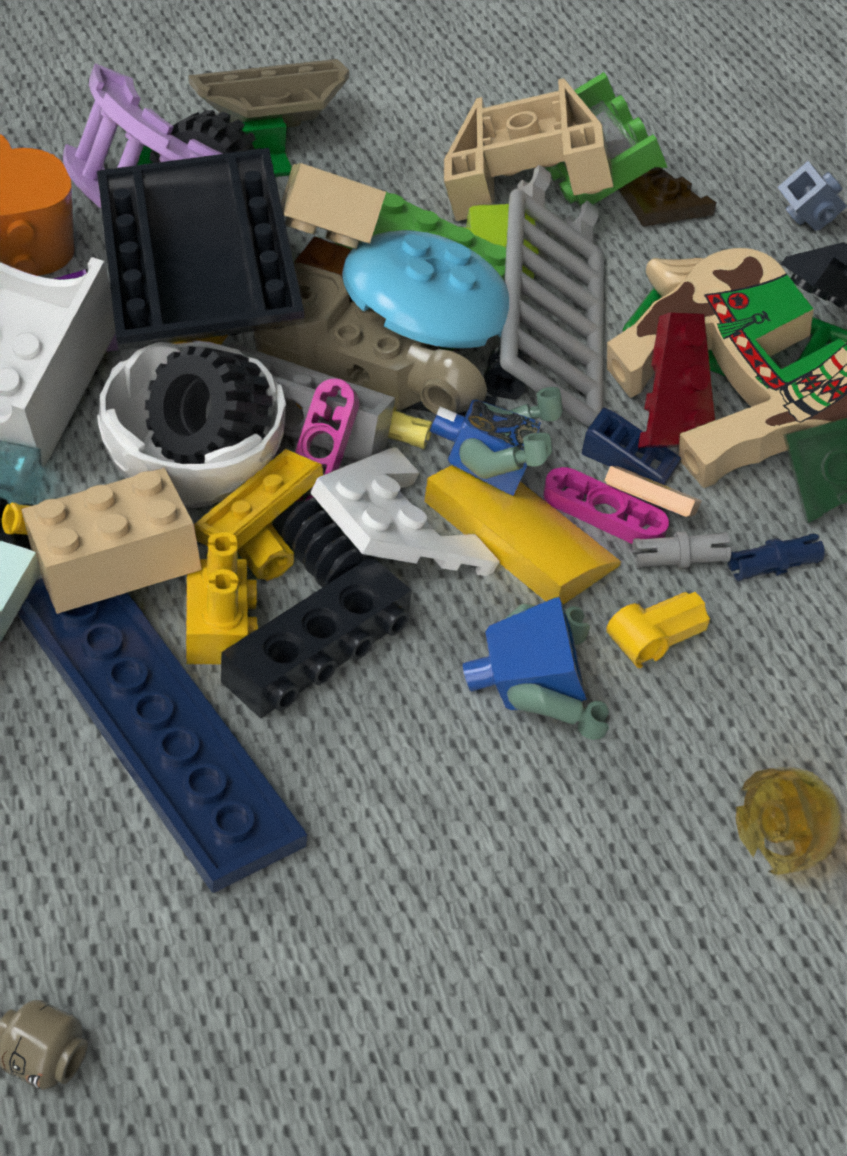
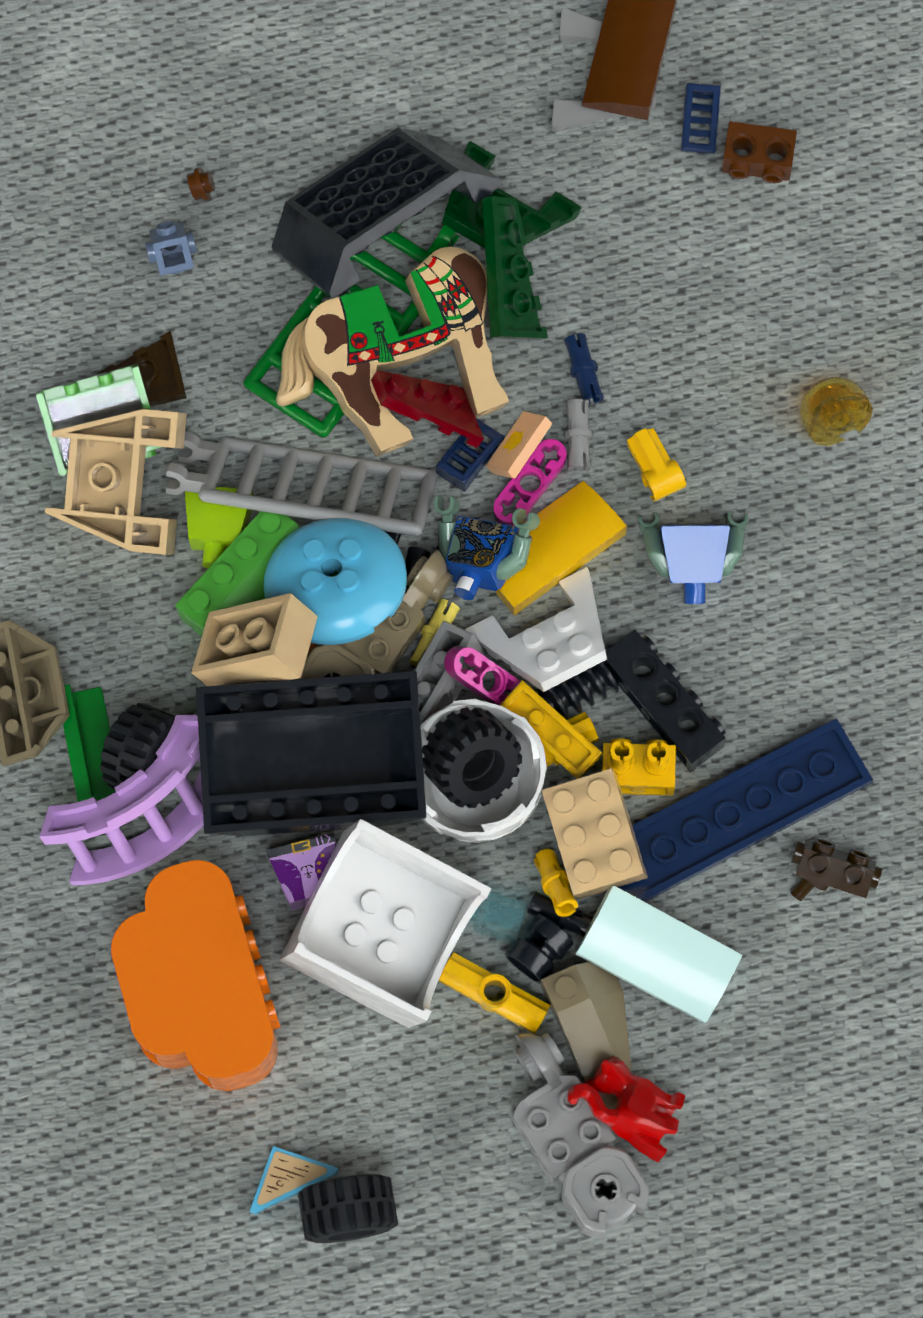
camera: 75 degrees left, 25 degrees up
(69, 832) = (826, 867): none -> dark brown brick

